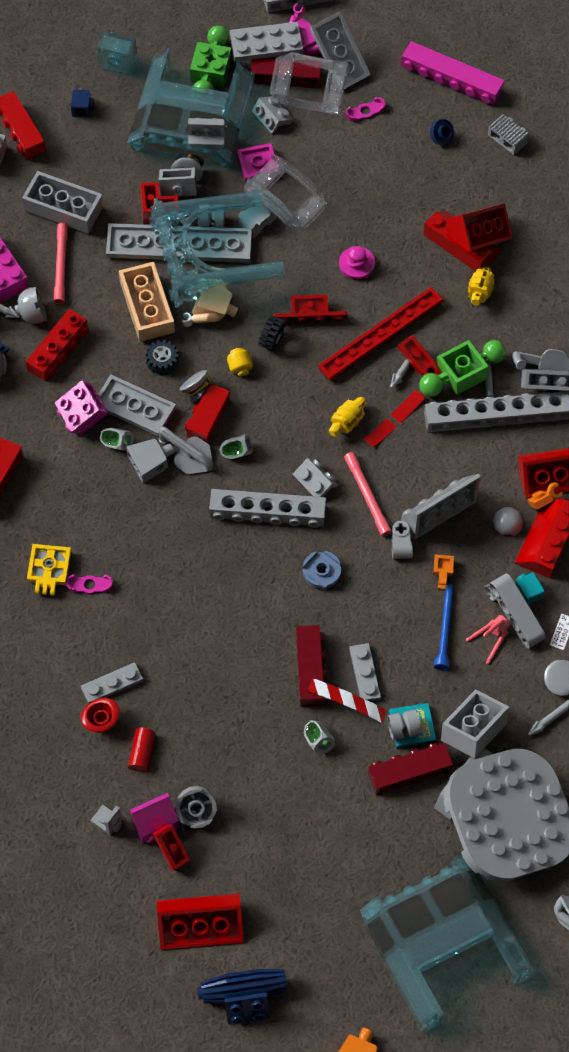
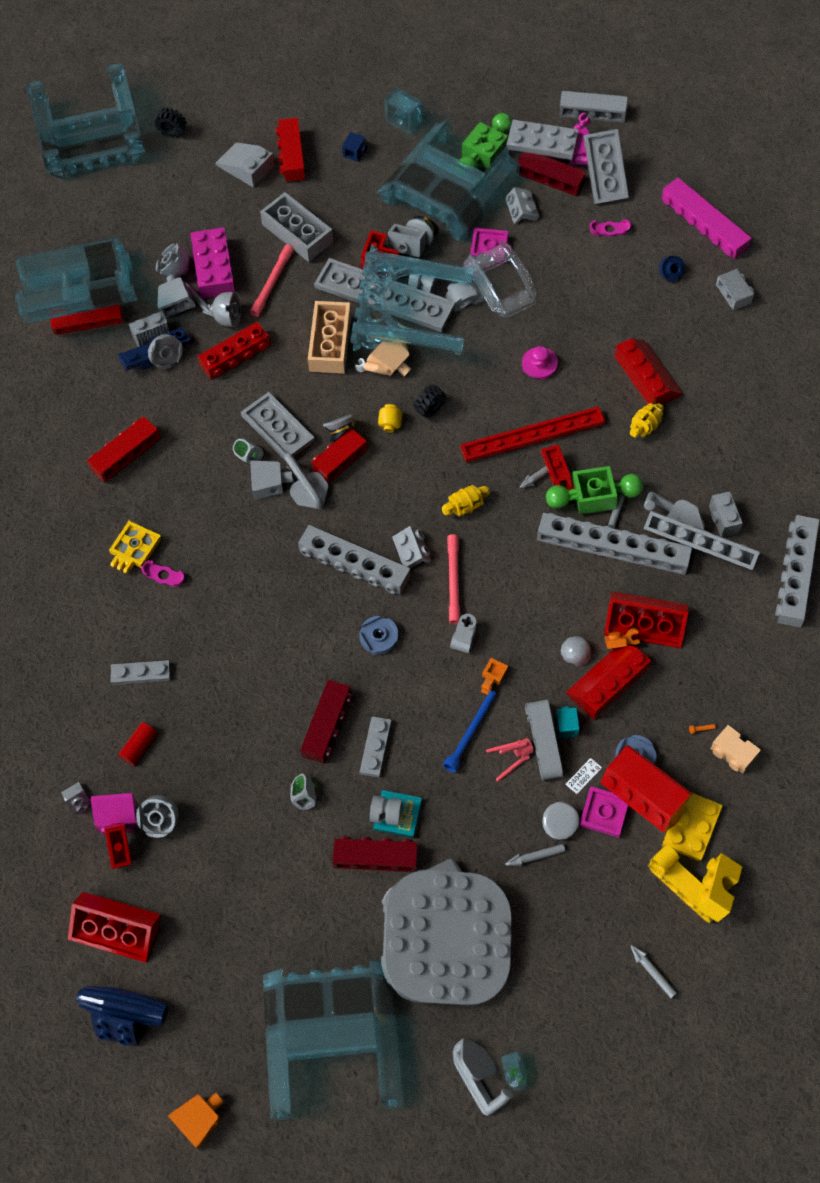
camera: 25 degrees right, 0 degrees up
(81, 408) = (226, 412): brick -> none
(100, 715) = (112, 698): red hat -> none
(157, 352) = (324, 385): black wheel -> none
(206, 132) = (445, 200): light grey bracket -> none
(236, 447) = (352, 494): rock -> none
(310, 306) = (476, 388): red bracket -> none
(334, 85) = (587, 196): clear wedge -> none
(347, 699) = (346, 766): sticker -> none
(398, 414) = (517, 515): red sticker -> none
(442, 505) = (515, 614): light grey slope -> none
(474, 723) = (453, 834): light grey brick -> none
(480, 227) = (667, 365): red slope -> none

